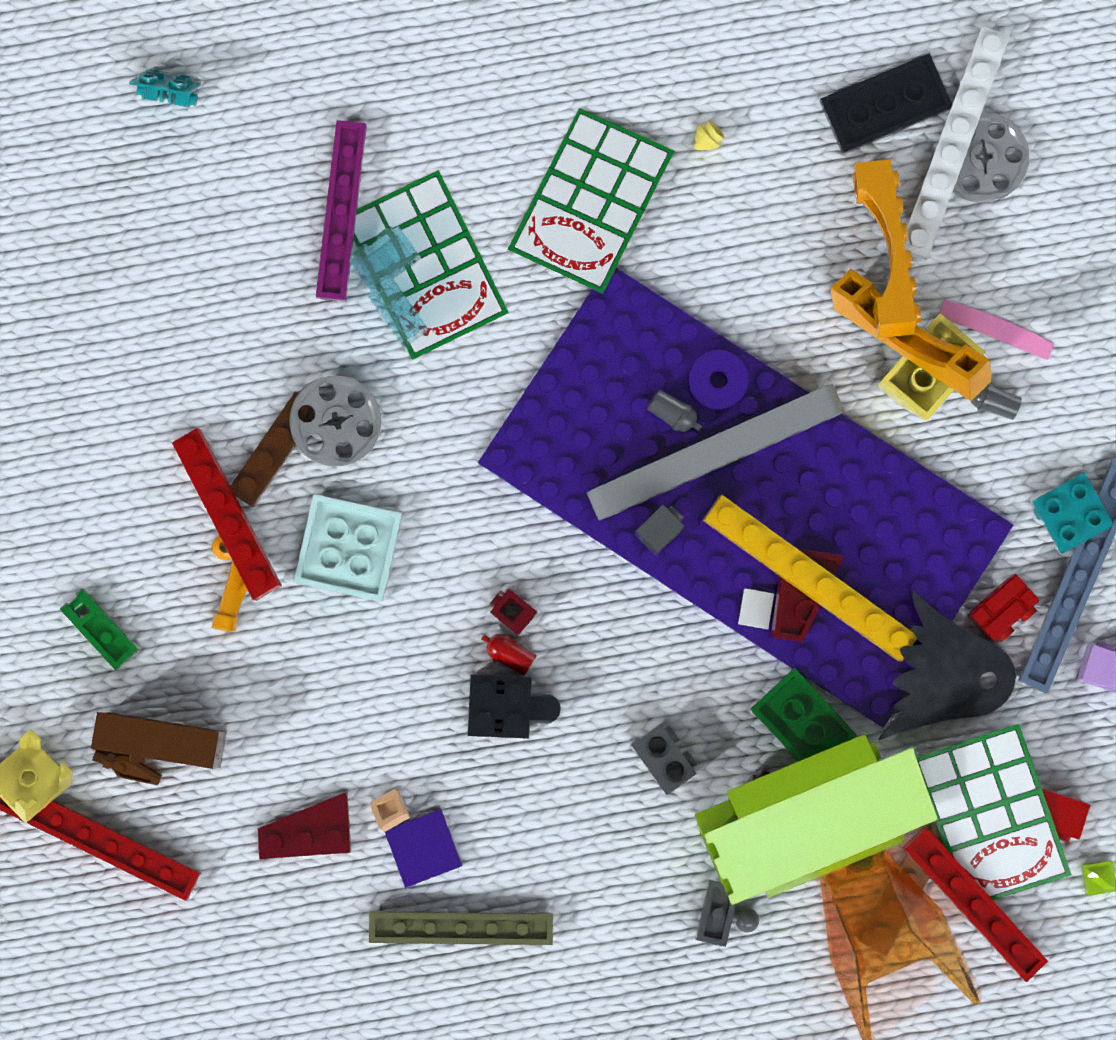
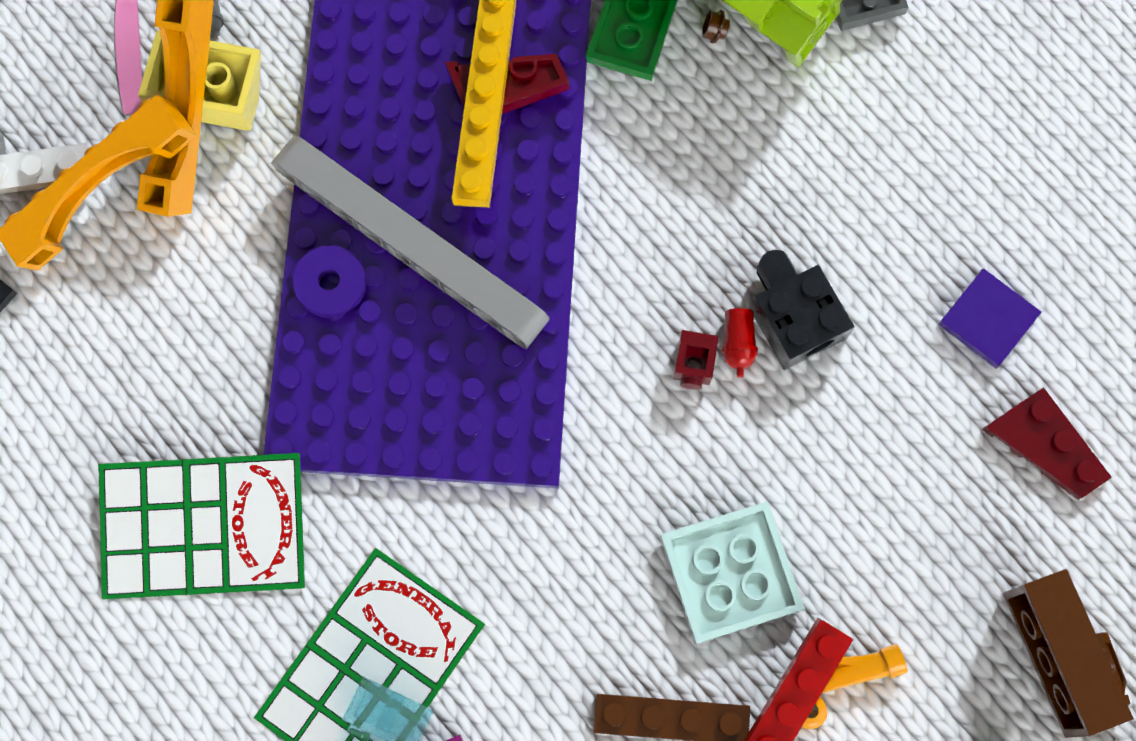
camera: 120 degrees left, 10 degrees down
(347, 429) = (599, 685): light grey wedge -> none
(389, 810) = (976, 370): light nougat plate -> none
(397, 312) = (442, 665): clear light blue brick -> none
(461, 928) = (1045, 236): olive plate -> none
(658, 762) = (756, 132): dark grey brick -> none
(660, 529) = (523, 245): dark grey brick -> none
(673, 412) = (389, 306): dark grey piece -> none
(708, 136) = (65, 439): light yellow plate -> none
(756, 608) = (548, 121): white sticker -> none

